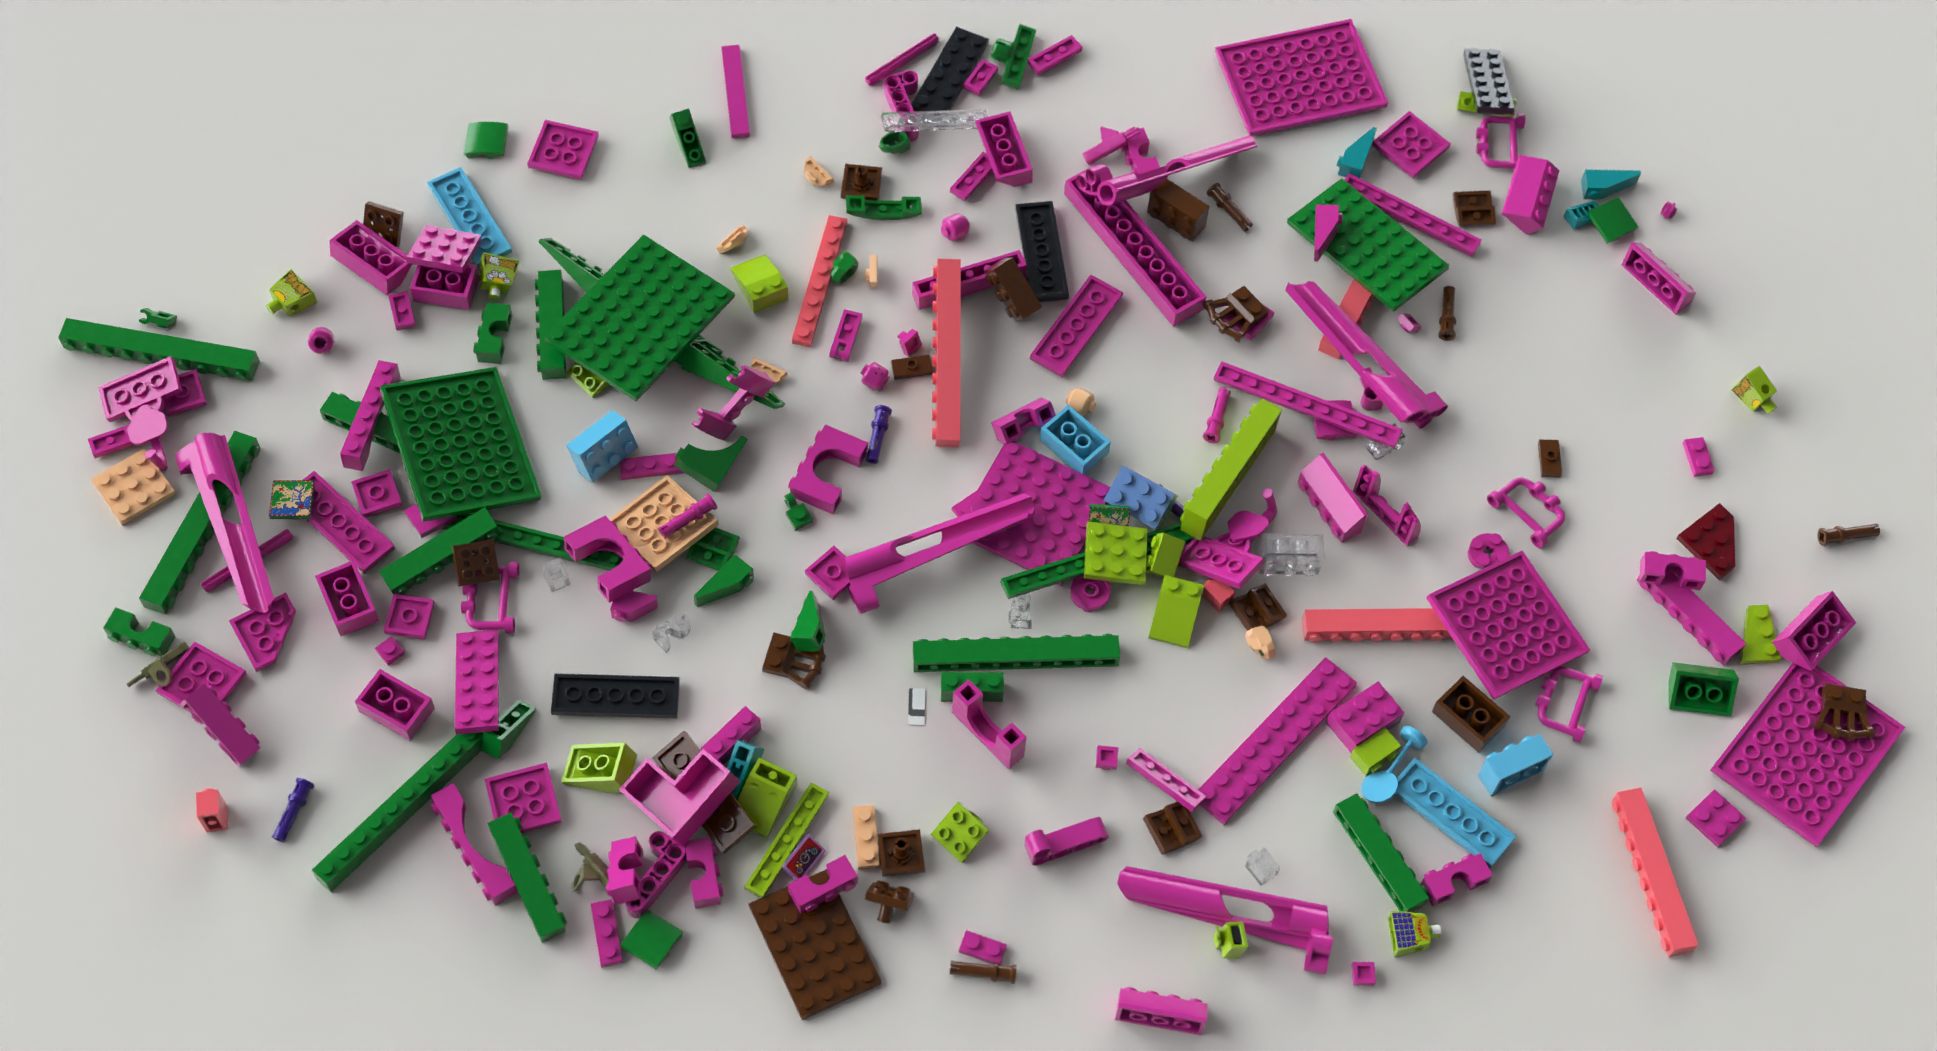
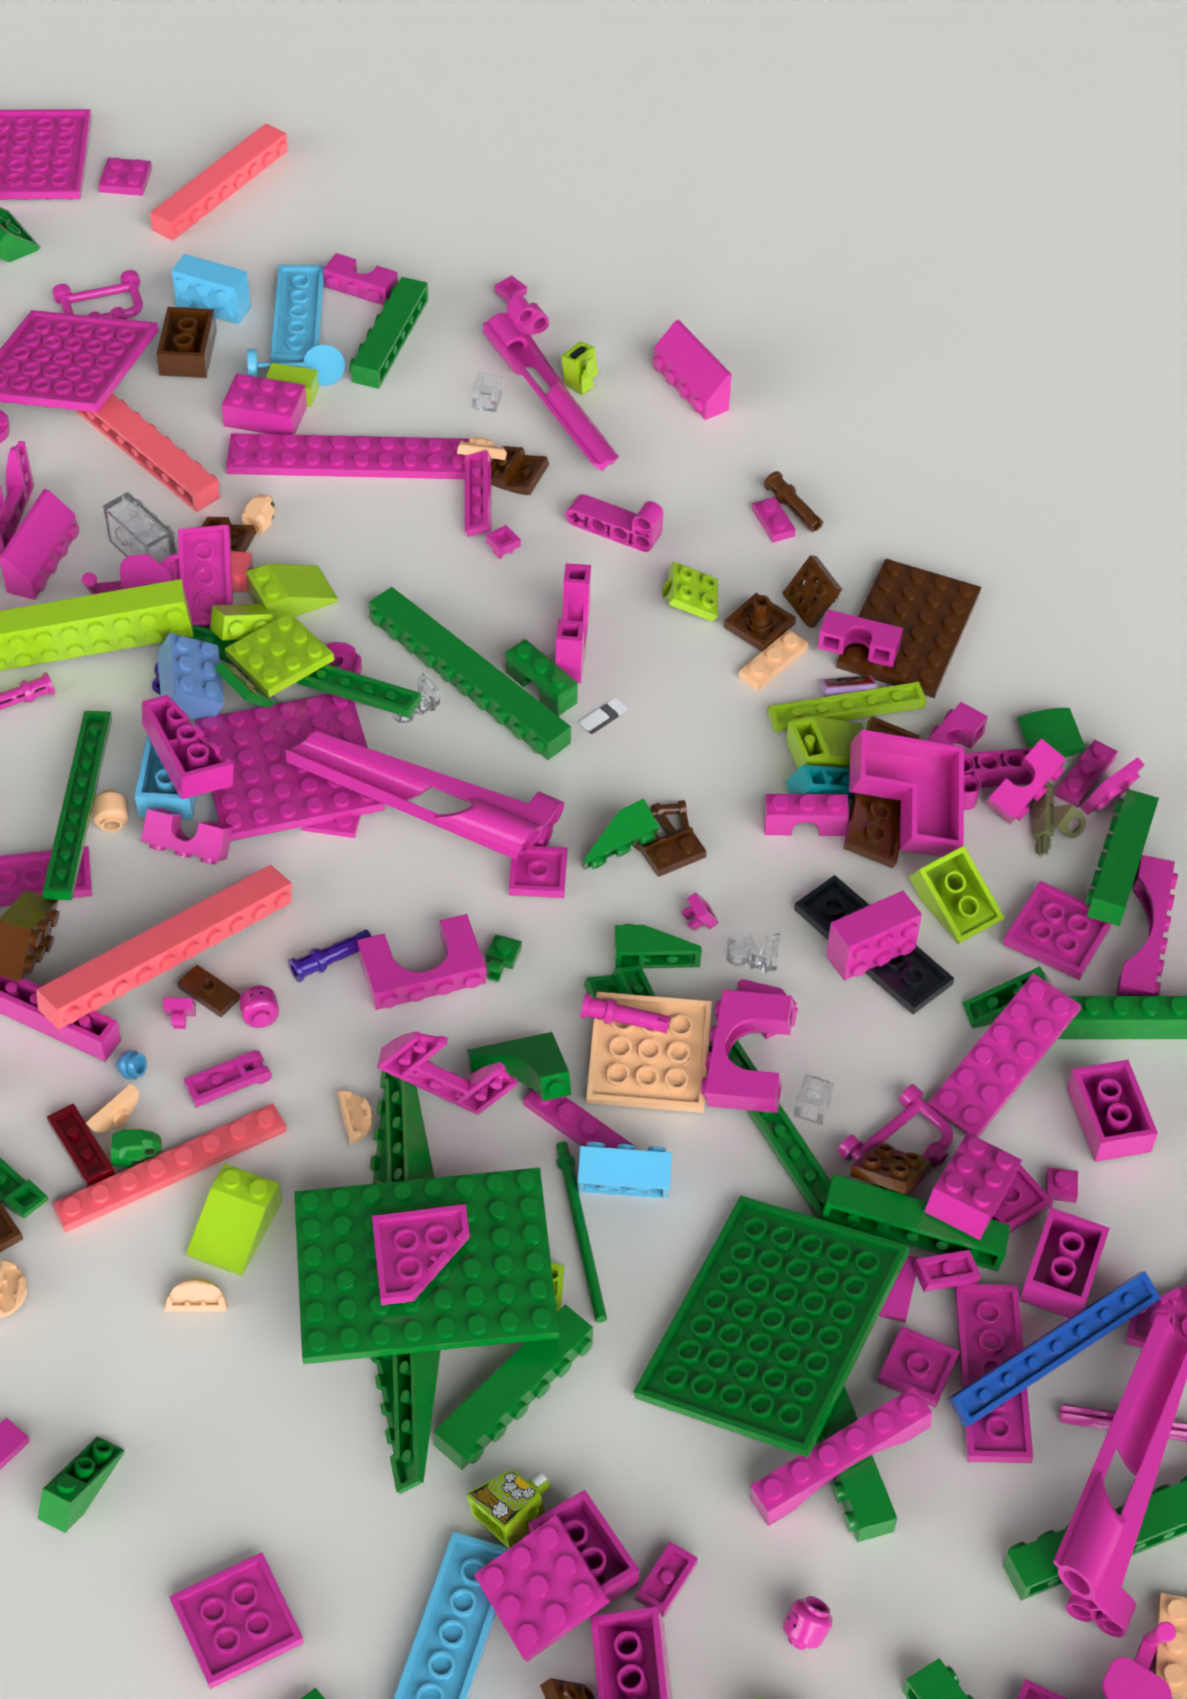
camera: 130 degrees left, 10 degrees down
(292, 499) = (1029, 1435): tile -> none
(312, 548) = (1053, 1349): none -> blue plate
(401, 539) = (946, 1270): none -> dark pink plate
(422, 583) = (973, 1186): none -> dark pink brick
(495, 318) = (572, 1457): green arch -> none
(573, 919) = (1113, 787): none -> dark pink plate
(607, 676) = (873, 935): none -> dark pink brick
(643, 440) = (566, 1163): none -> green bar
(644, 306) = (415, 1248): none -> dark pink plate
(723, 628) = (701, 911): none -> dark pink tile
(864, 248) = (80, 1145): none -> dark red plate
(896, 301) = (131, 1064): none -> dark azure plate
(1071, 436) = (185, 753): none -> dark pink wedge
(1092, 379) = (77, 806): none -> green plate
(1205, 813) = (480, 444): none -> light nougat plate
(1410, 932) = (444, 279): torso -> none

